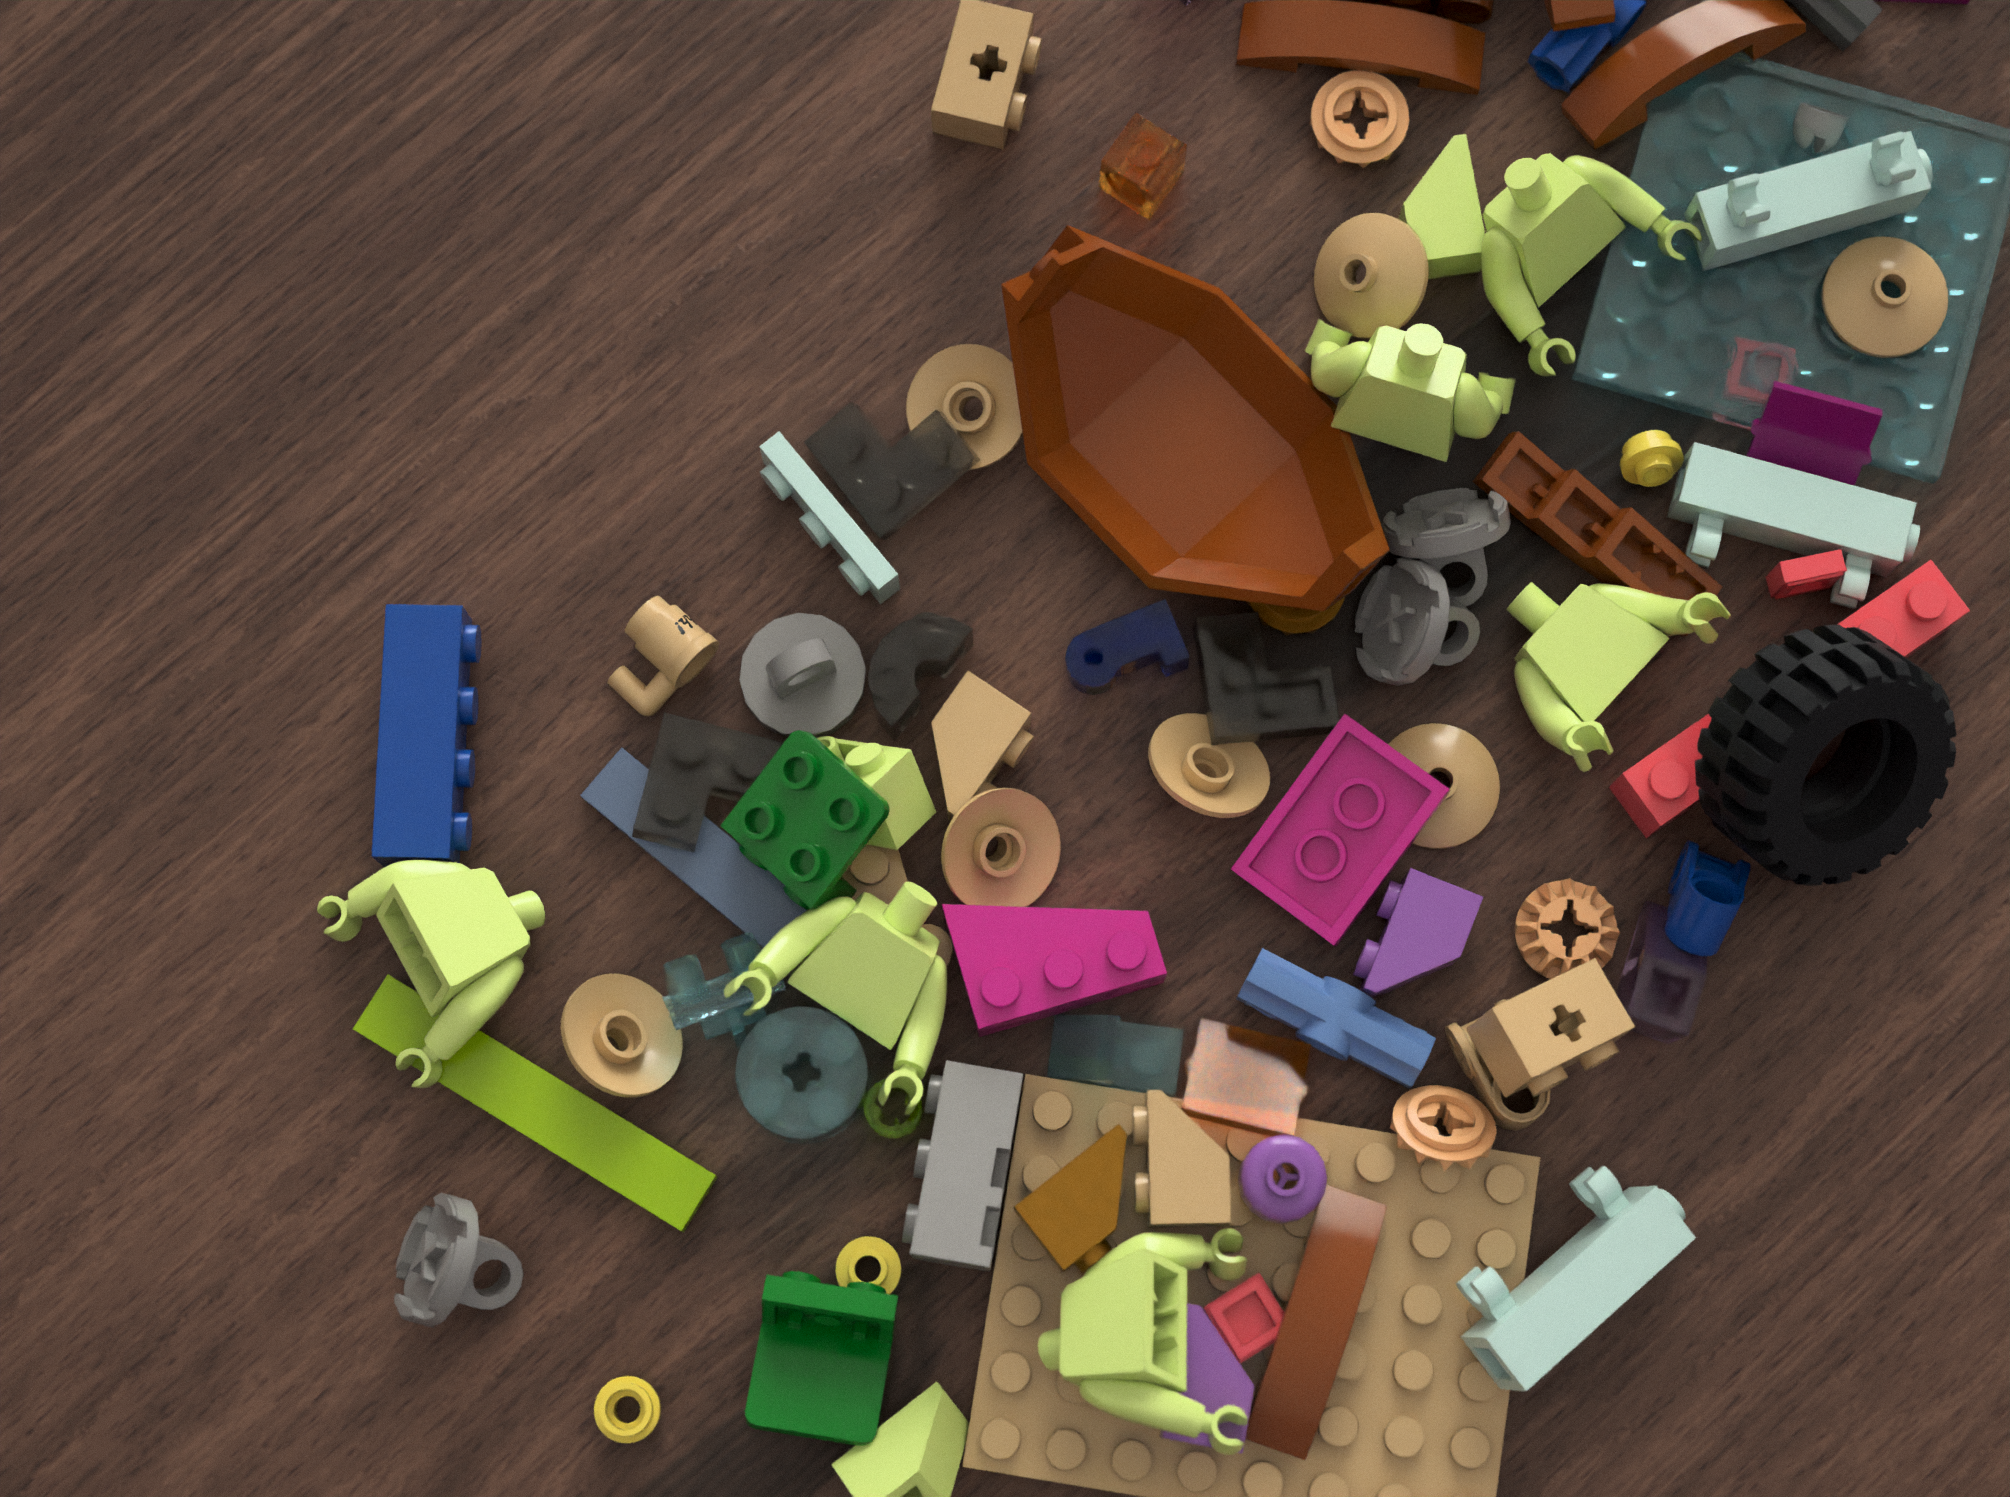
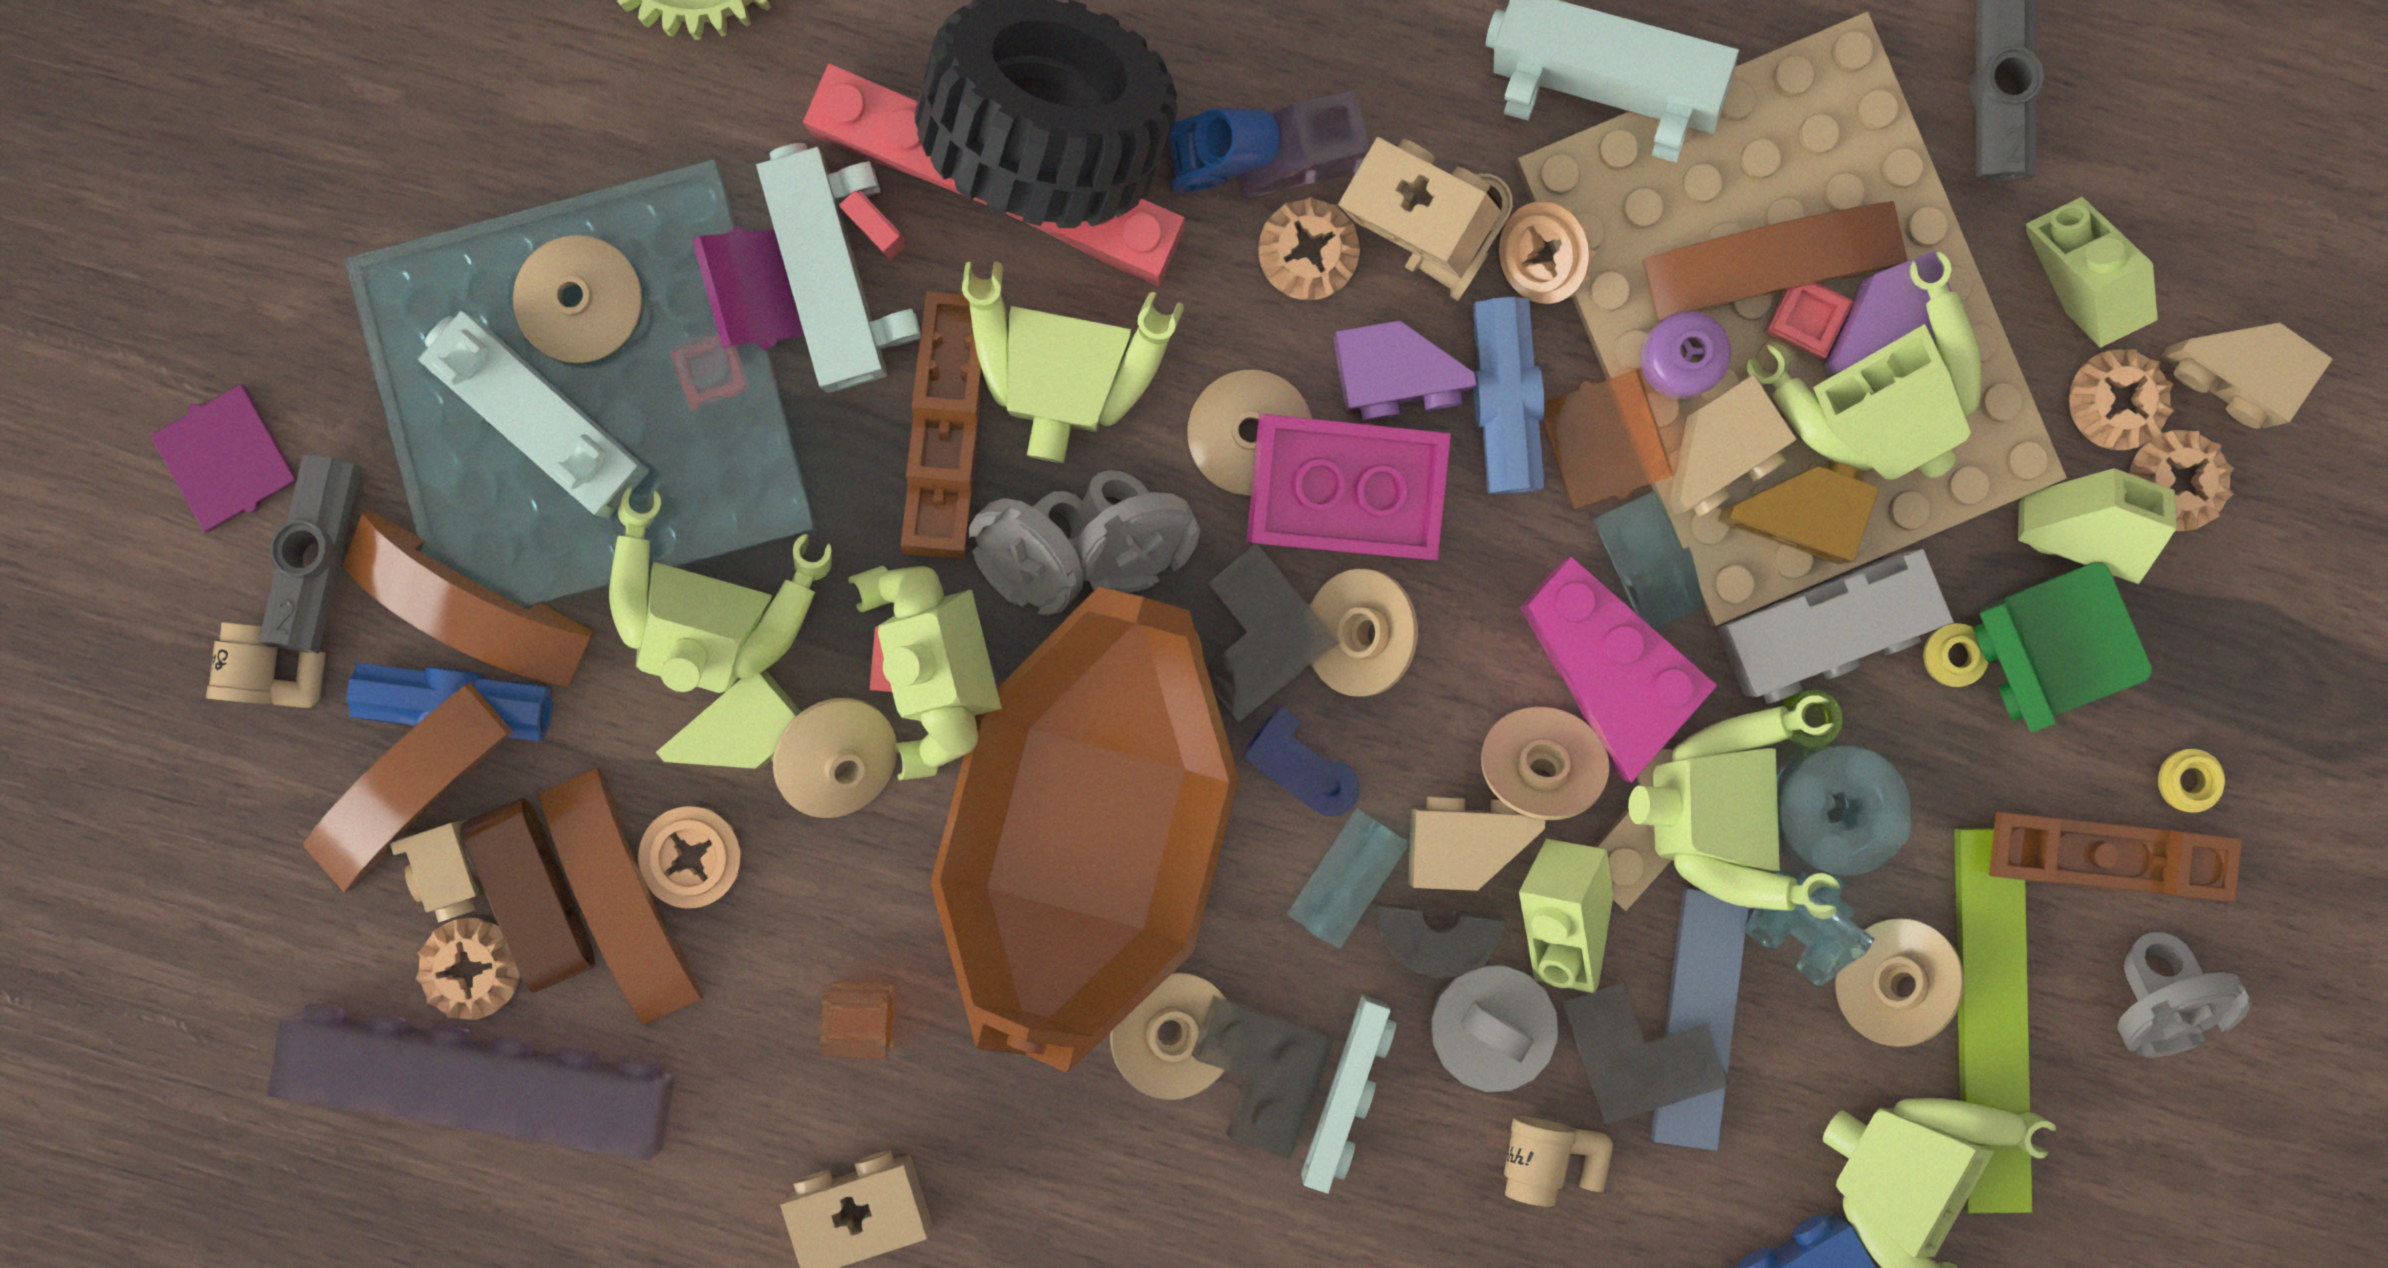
camera: 125 degrees left, 10 degrees up
(609, 1292) = (2115, 856): none -> dark orange slope
(807, 820) = (1635, 940): green bracket -> none
(1005, 631) = (1347, 878): none -> clear light blue hinge
(1650, 458) = (850, 417): light yellow plate -> none
(1817, 122) = (453, 448): light grey hinge -> none

